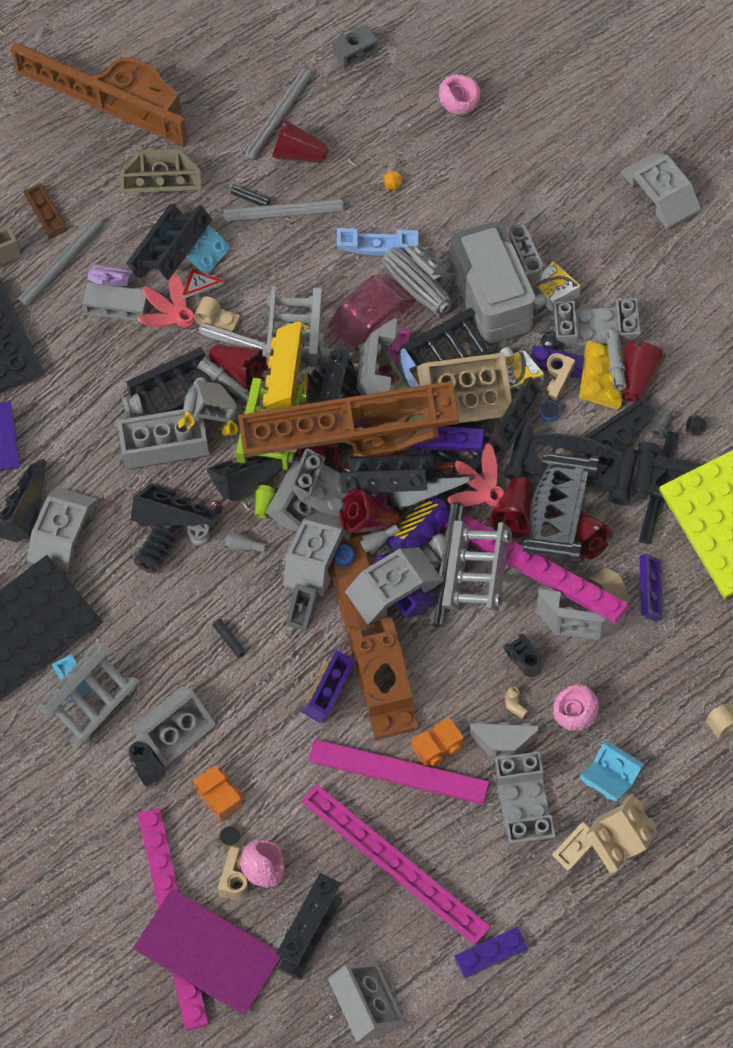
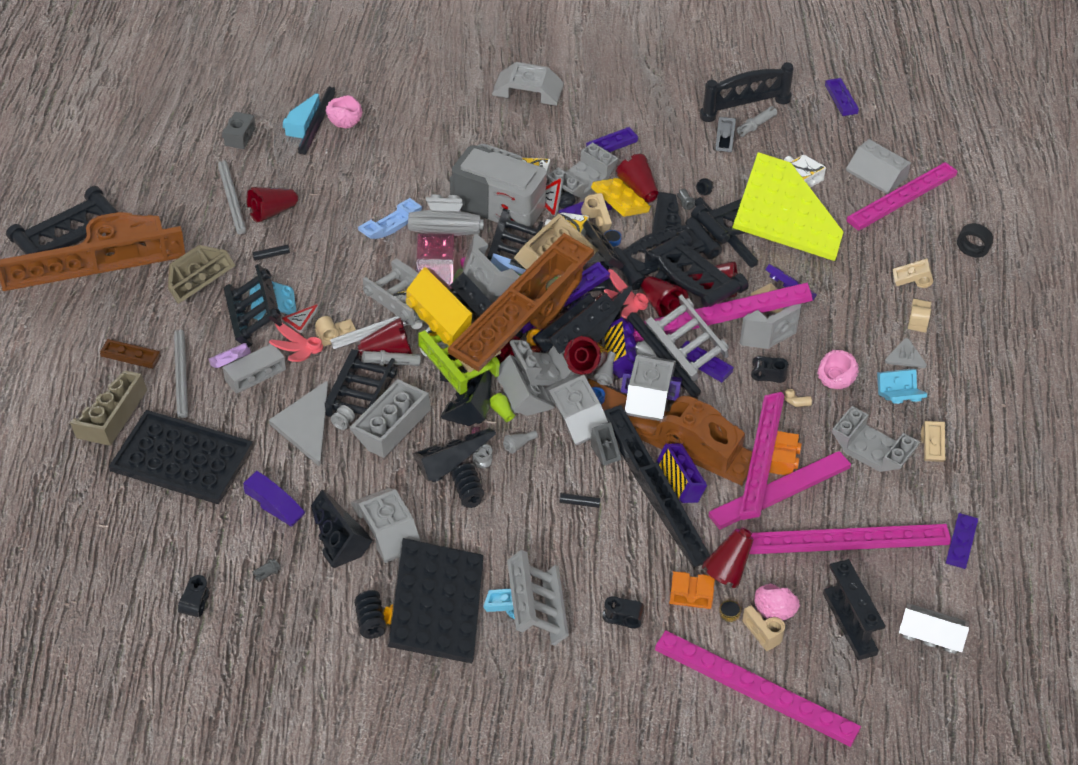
camera: 50 degrees left, 15 degrees down
(79, 34) = (29, 239): none -> black piece
(102, 384) = (304, 422): none -> light grey tile
(174, 725) = (611, 572): light grey slope -> none
(207, 951) = (806, 684): magenta piece -> none
(209, 402) = (402, 371): light grey torso -> none
(261, 796) = (730, 558): none -> dark red cone
(283, 210) = (304, 244): light grey axle -> none
(297, 680) = (656, 487): none -> black slope
(392, 180) = (356, 184): light orange plate -> none
(411, 728) = (761, 456): none -> dark pink tile
(422, 72) = (300, 117): none -> medium azure slope
(433, 84) = (316, 121): none -> black axle
(480, 615) = (715, 367): none -> dark purple plate
(503, 738) = (816, 422): light grey slope -> none
(541, 323) = (553, 194): none -> piece
(616, 366) = (627, 183): light grey pin -> none
(621, 833) = (953, 409): tan bracket -> none
(668, 309) = (616, 140): none -> dark purple plate
(668, 745) = (906, 355): none -> light grey piece

